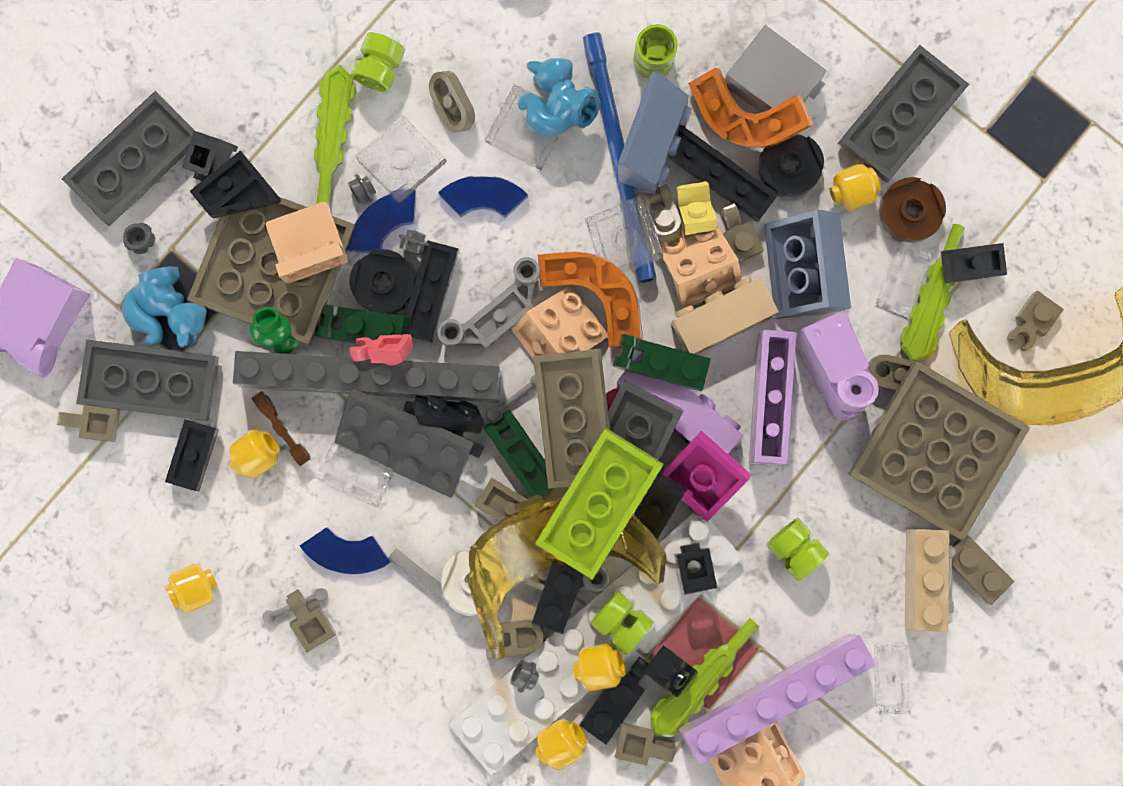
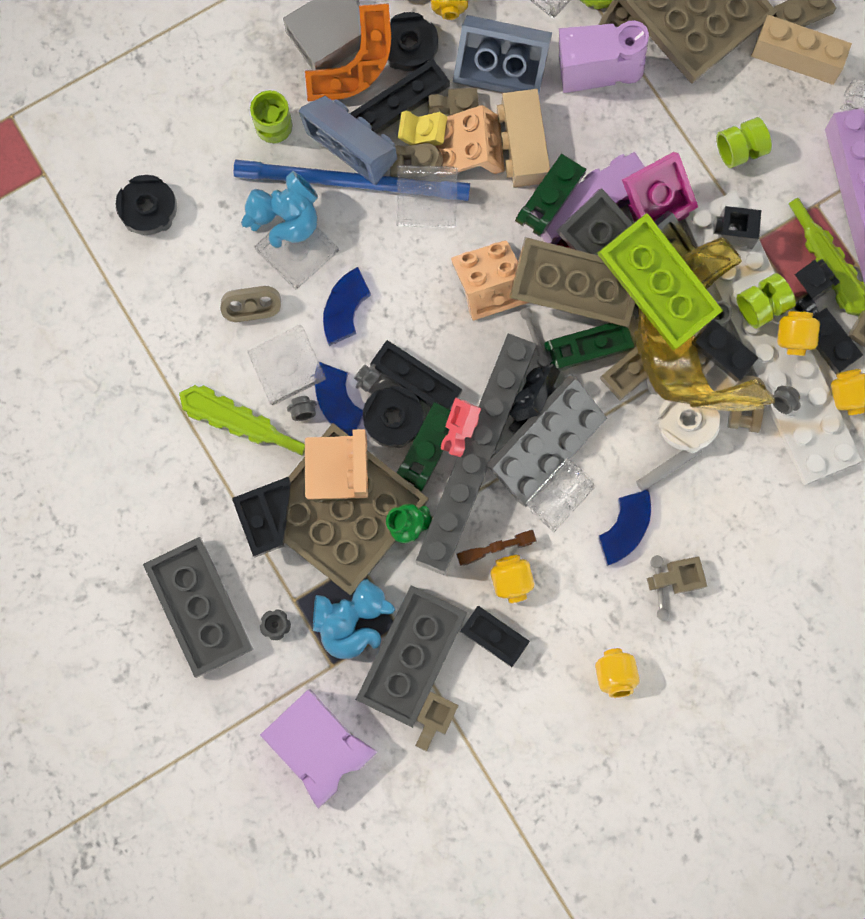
camera: 70 degrees left, 5 degrees down
(206, 154) = (213, 535): black brick -> none
(378, 60) = (188, 352): lime wheel -> none
(499, 314) = (457, 323): light grey plate -> none
(602, 278) = (455, 226): orange plate -> none
(772, 398) = (609, 119): lavender brick -> none

